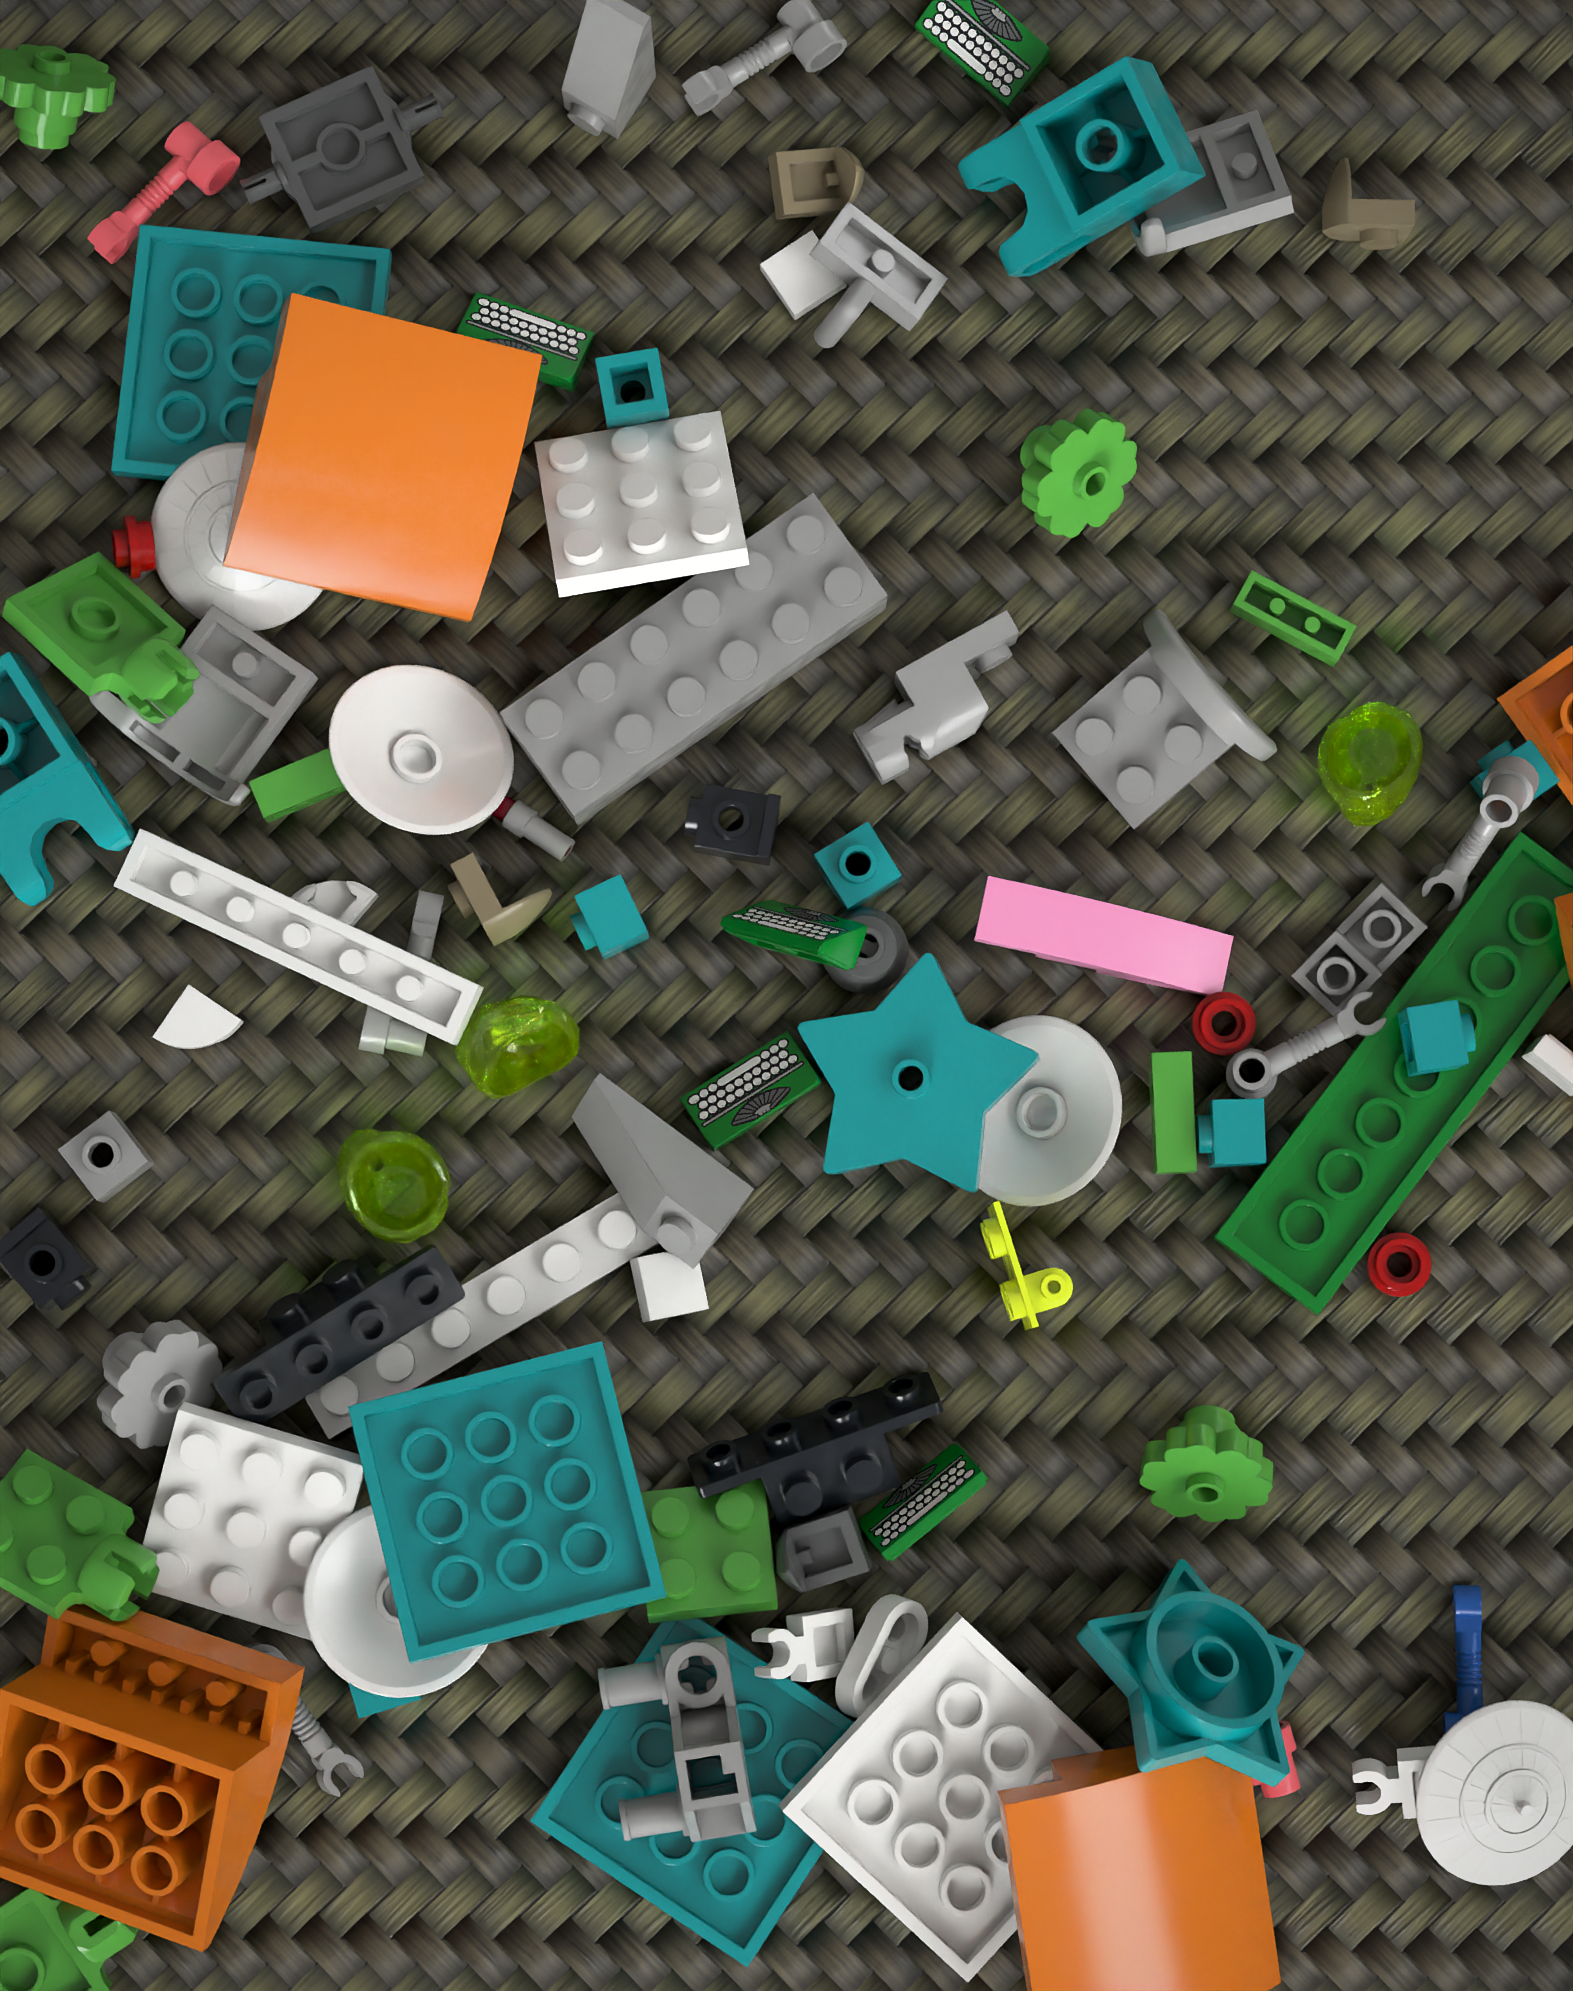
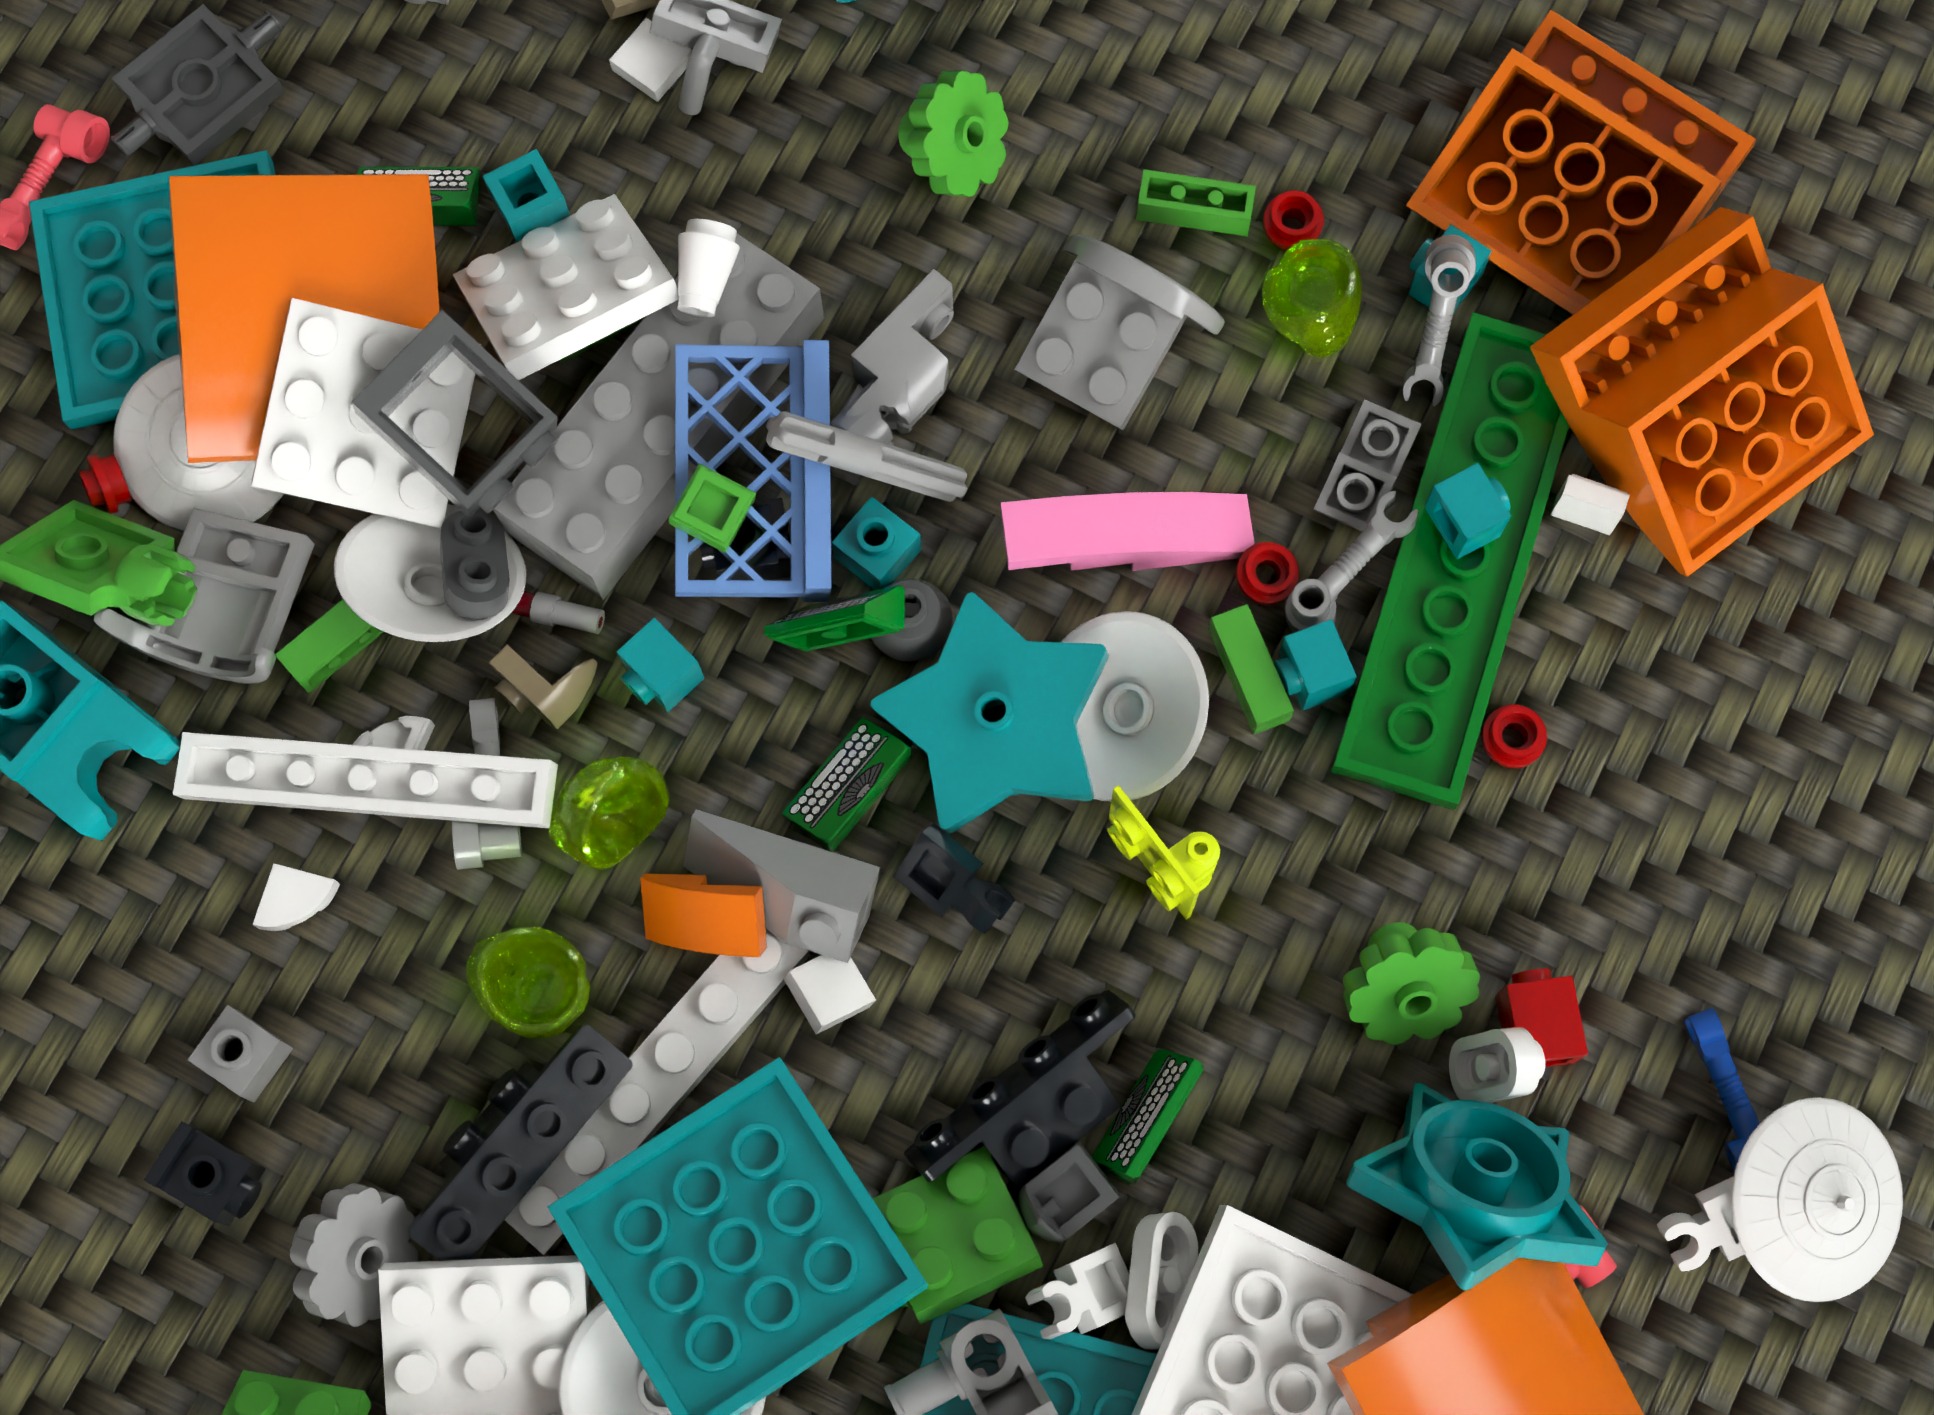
camera: 15 degrees left, 10 degrees down
(407, 578) = (323, 449): none -> white plate
(459, 564) = (412, 368): none -> dark grey window
(468, 752) = (474, 565): none -> dark grey plate
(573, 1181) = (703, 917): none -> orange slope
(709, 793) = (712, 508): none -> bright green tile
(781, 544) = (704, 265): none -> white cone
(812, 1216) = (944, 878): none -> black plate
(815, 780) = (808, 483): none -> medium blue fence
(874, 790) = (865, 456): none -> light grey axle
(1256, 1573) = (1496, 1065): none -> white plate
(1316, 1543) = (1546, 1010): none -> red brick
(1396, 657) = (1292, 205): none -> red plate

